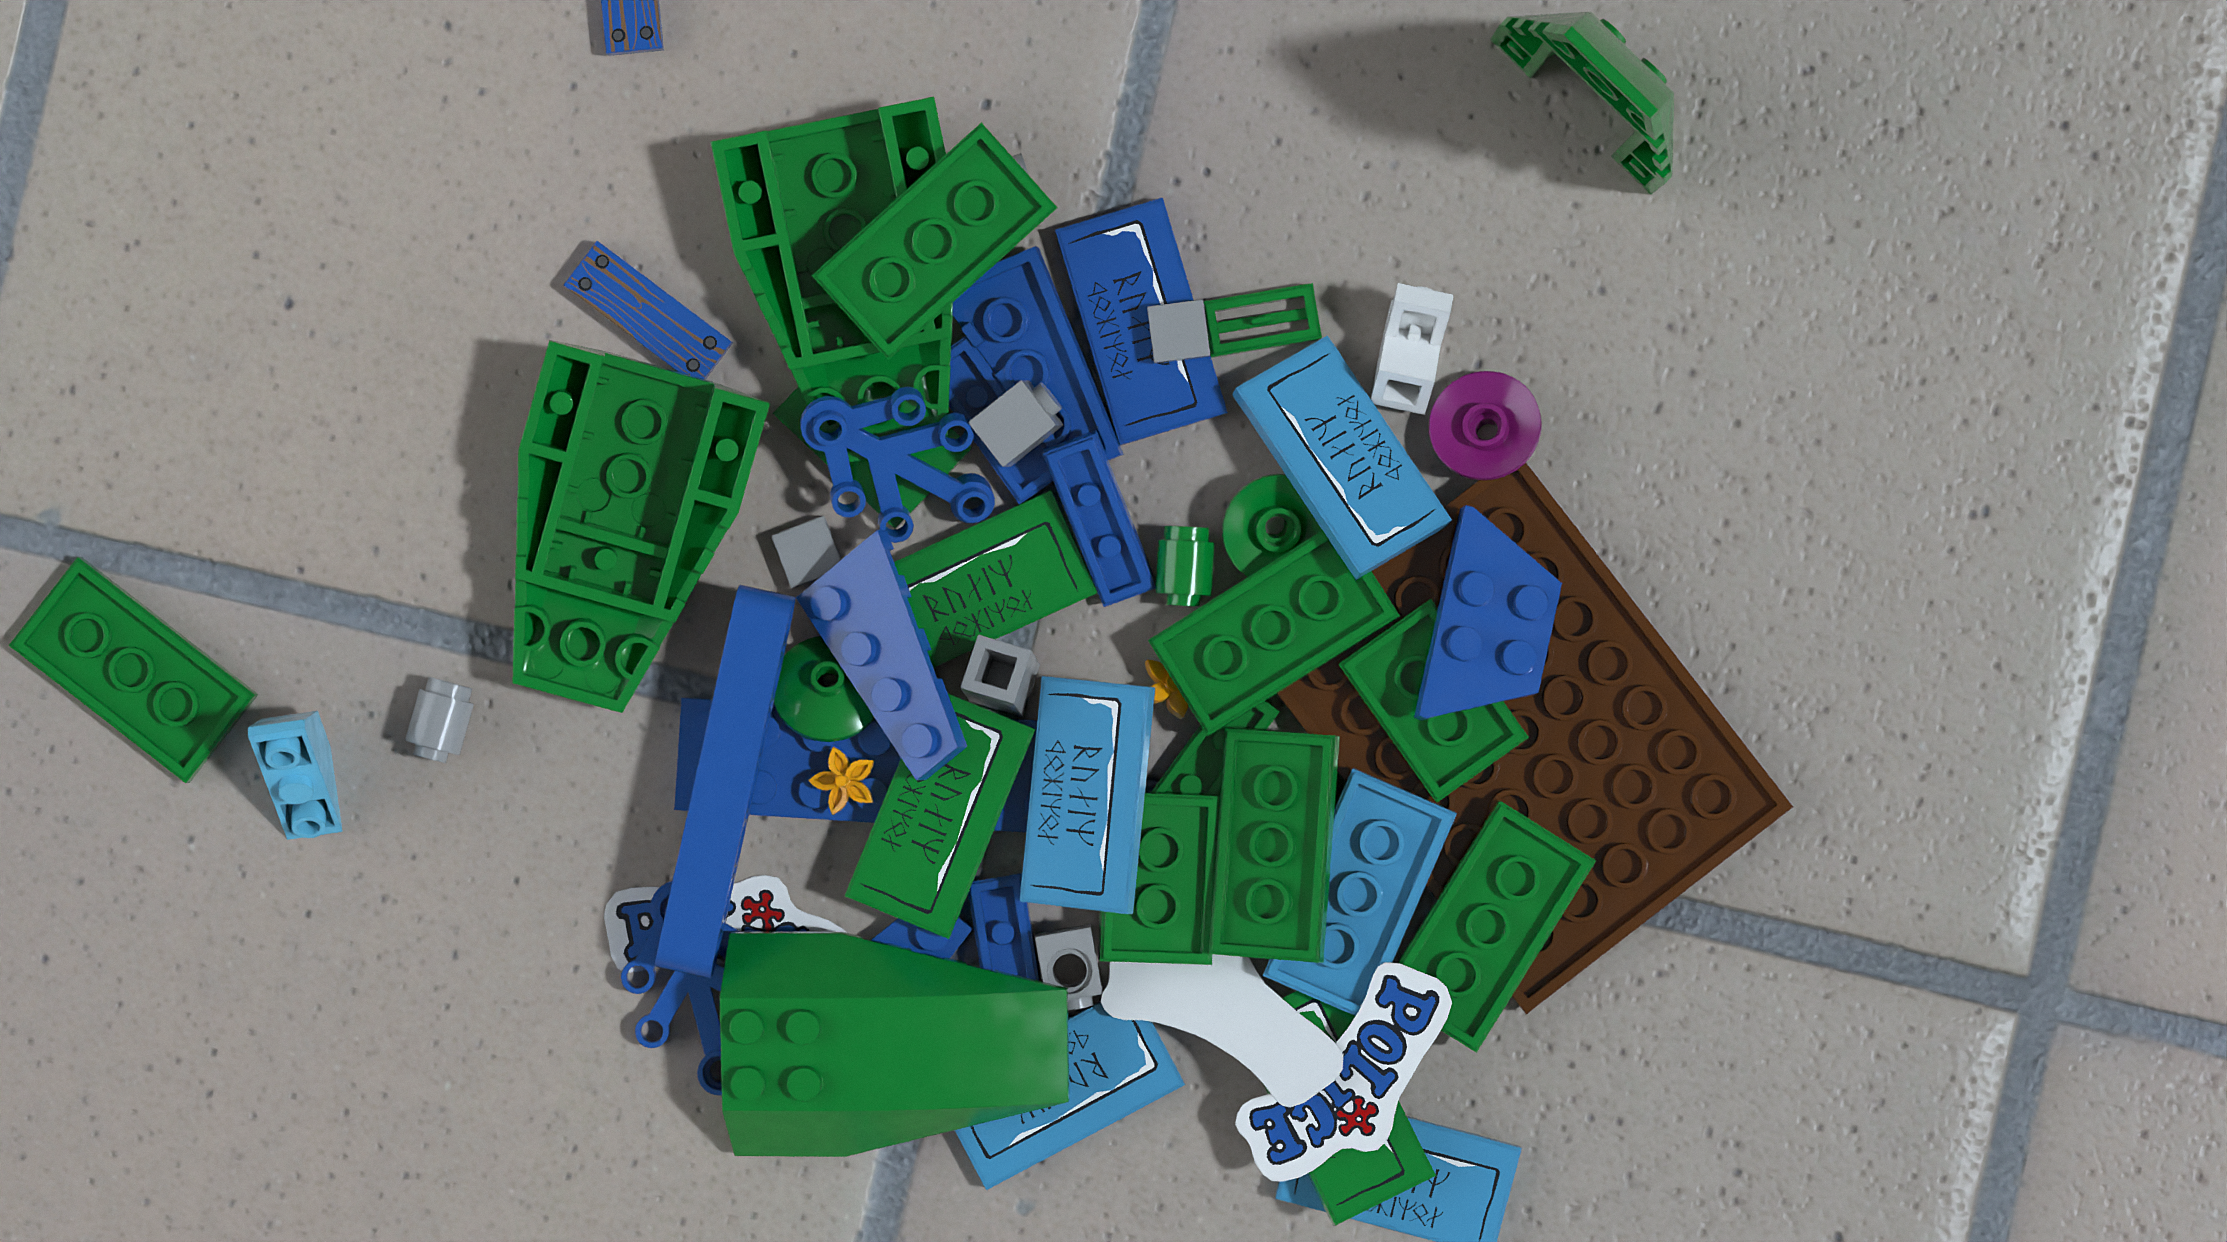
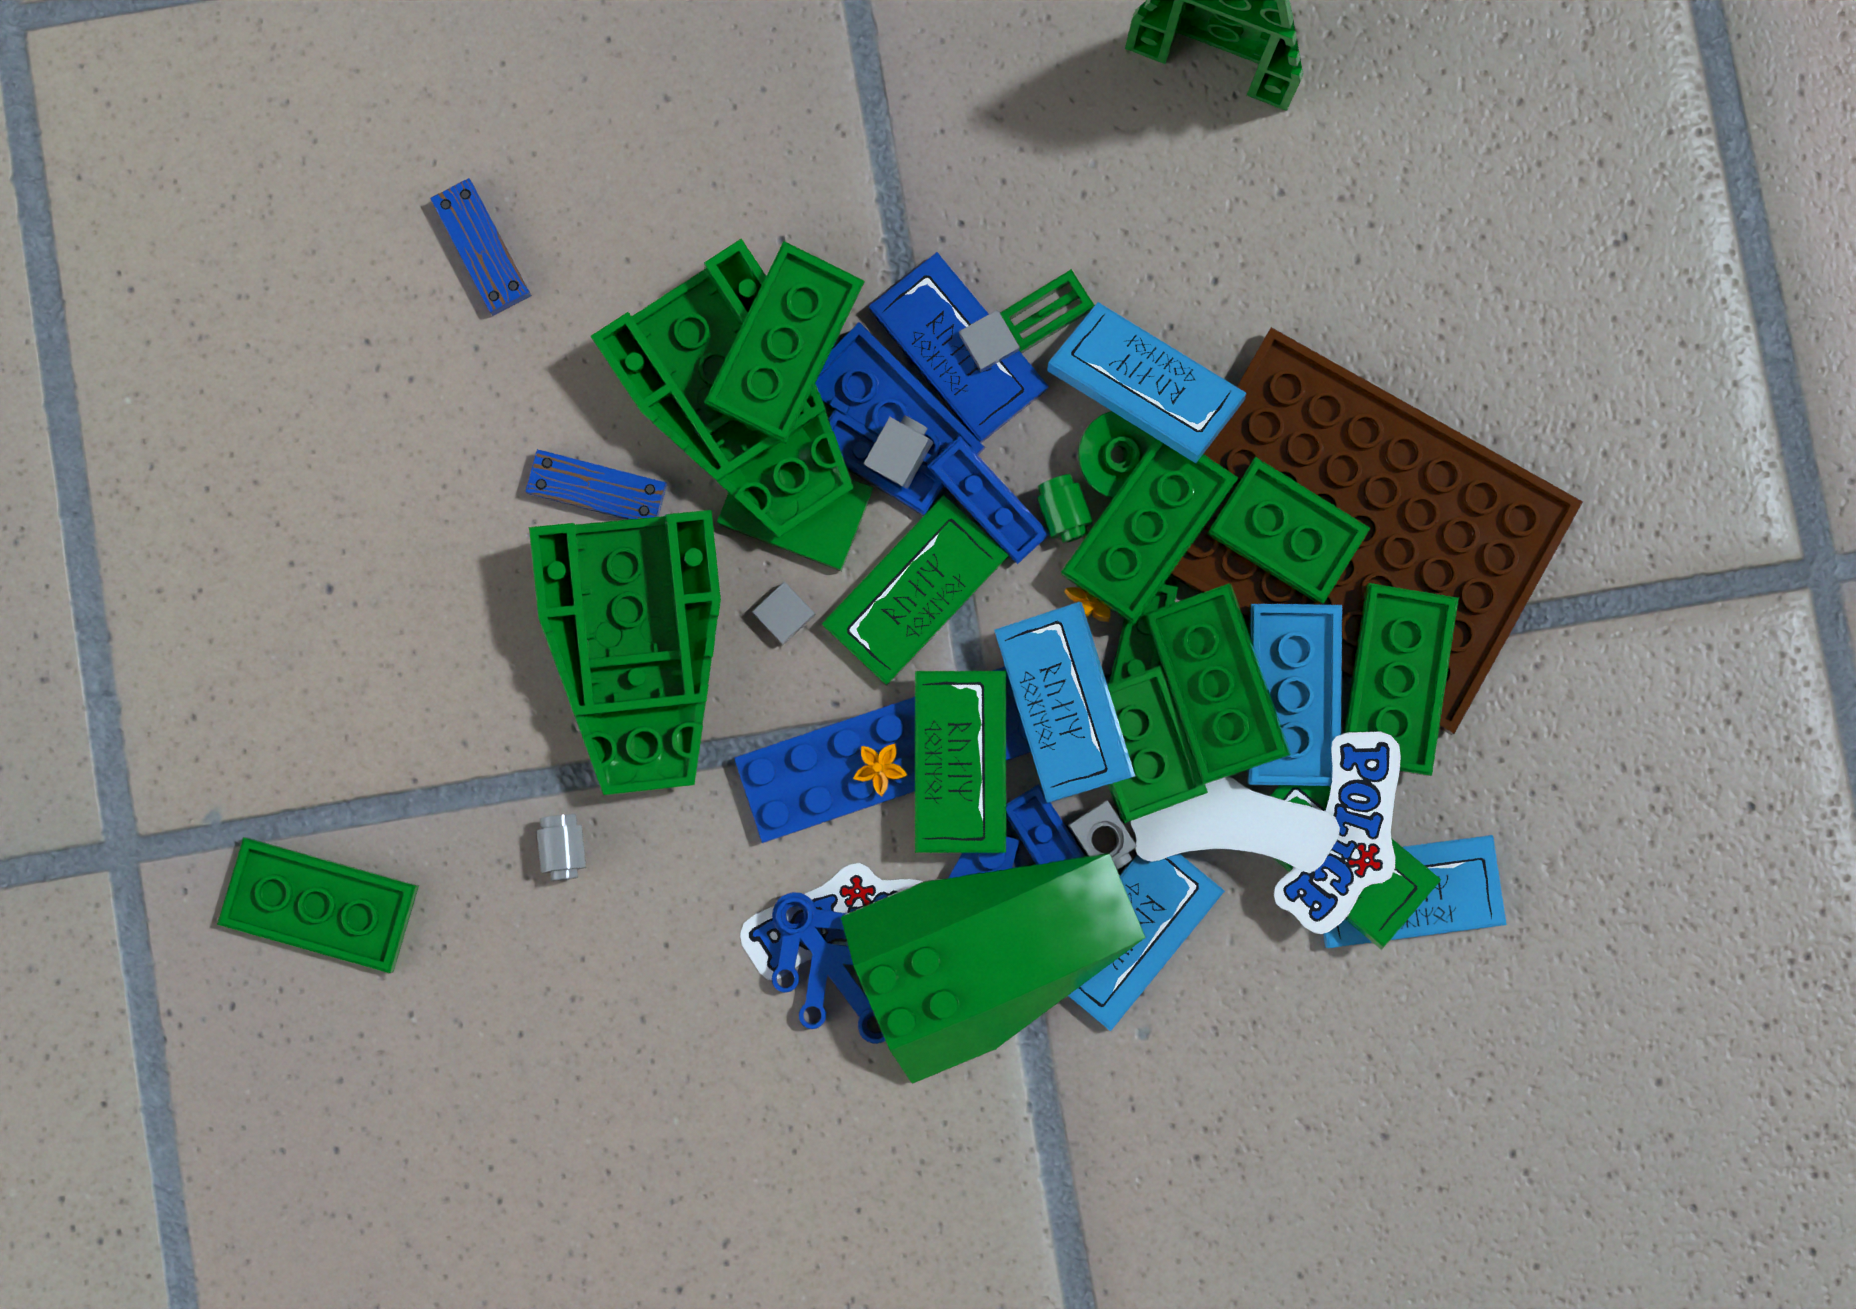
camera: 20 degrees left, 5 degrees down
(298, 773) = (470, 930): medium azure slope -> none
(725, 781) = (791, 804): blue beam -> none
(816, 710) = (843, 722): green dish -> none
(874, 636) = (860, 652): wing -> none
(893, 456) = (816, 513): blue plant -> none
(1000, 675) = (963, 642): light grey brick -> none
(1411, 348) = (1162, 282): white brick -> none
(1478, 401) = (1238, 300): magenta dish -> none
(1488, 622) = (1305, 456): blue wing -> none

